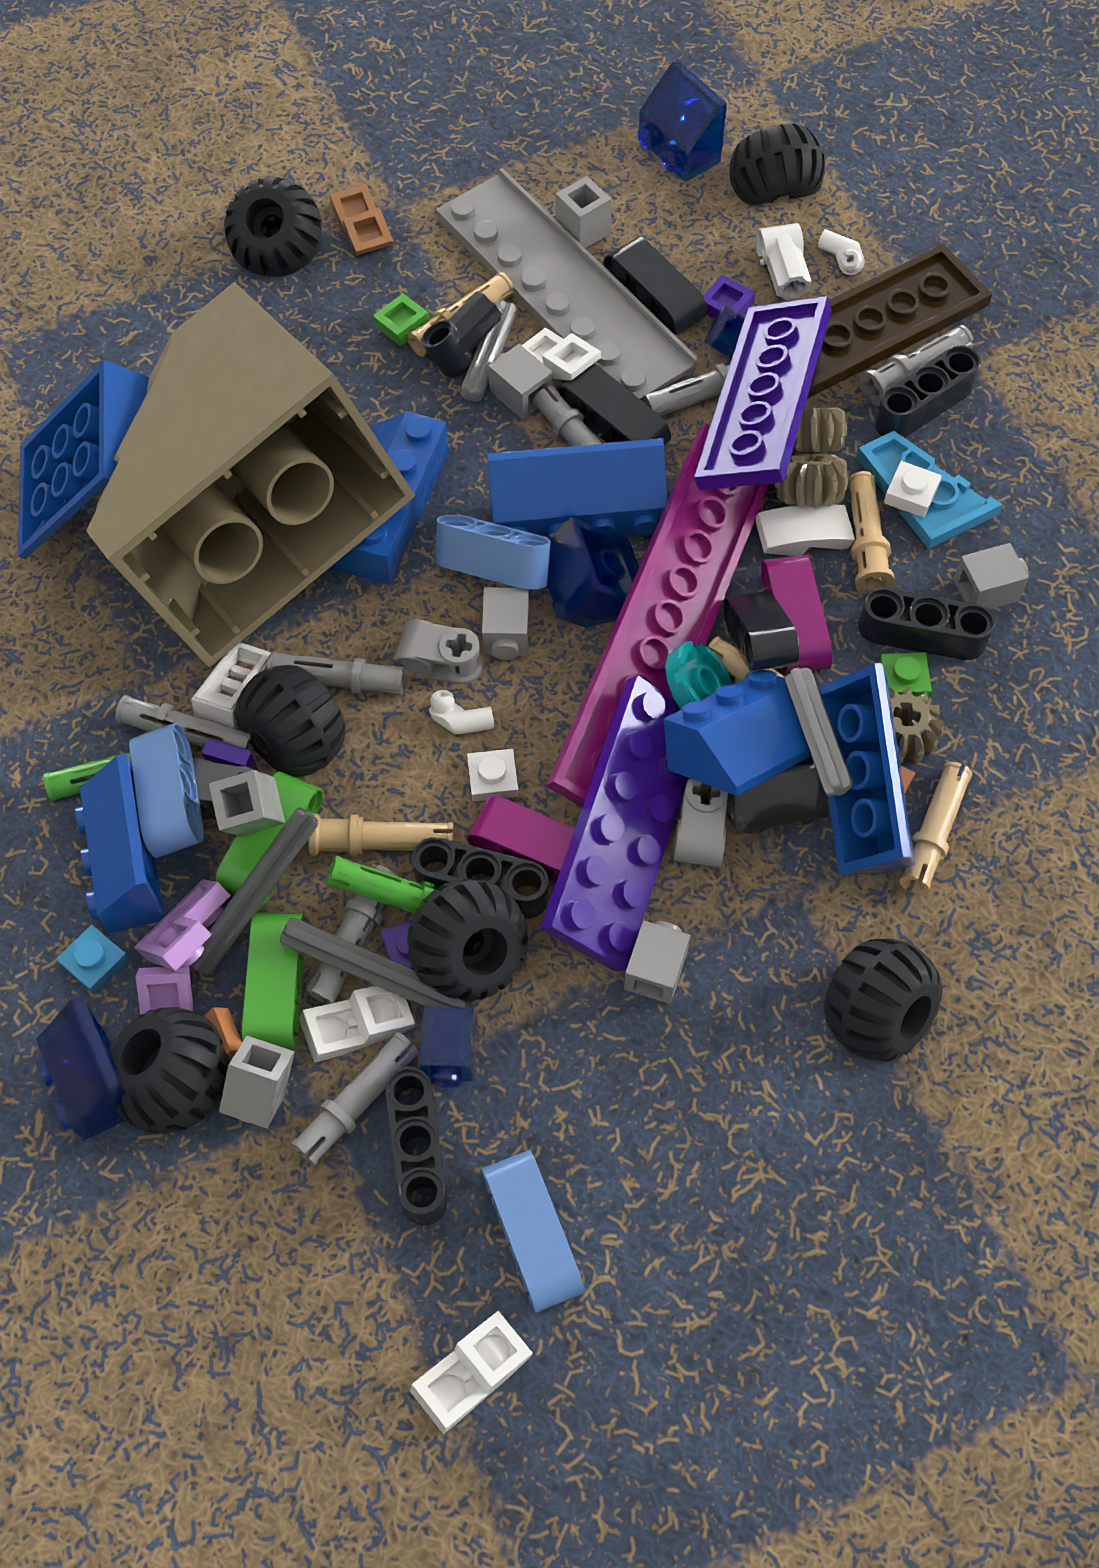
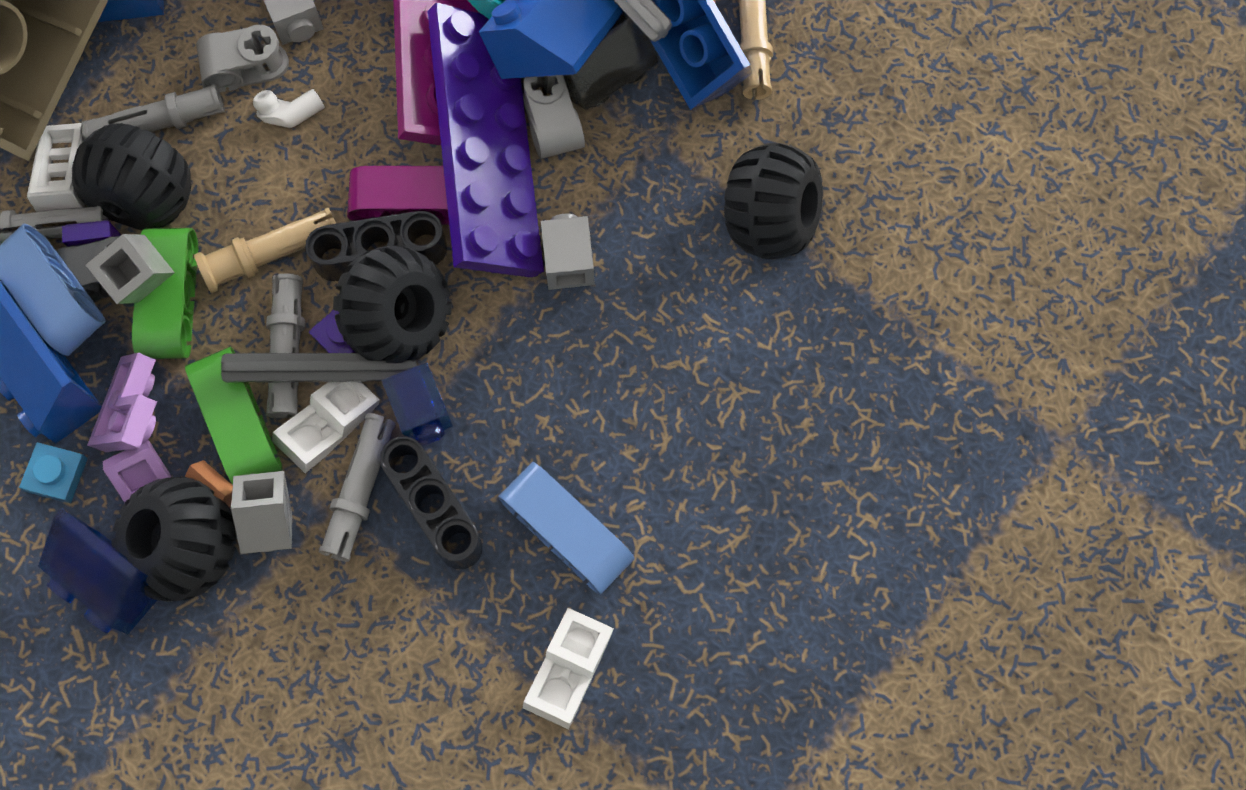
camera: 25 degrees left, 10 degrees up
(255, 889) = (177, 342): dark grey axle -> none
(378, 885) = (287, 291): bright green pin -> none
(492, 774) = (343, 150): white plate -> none

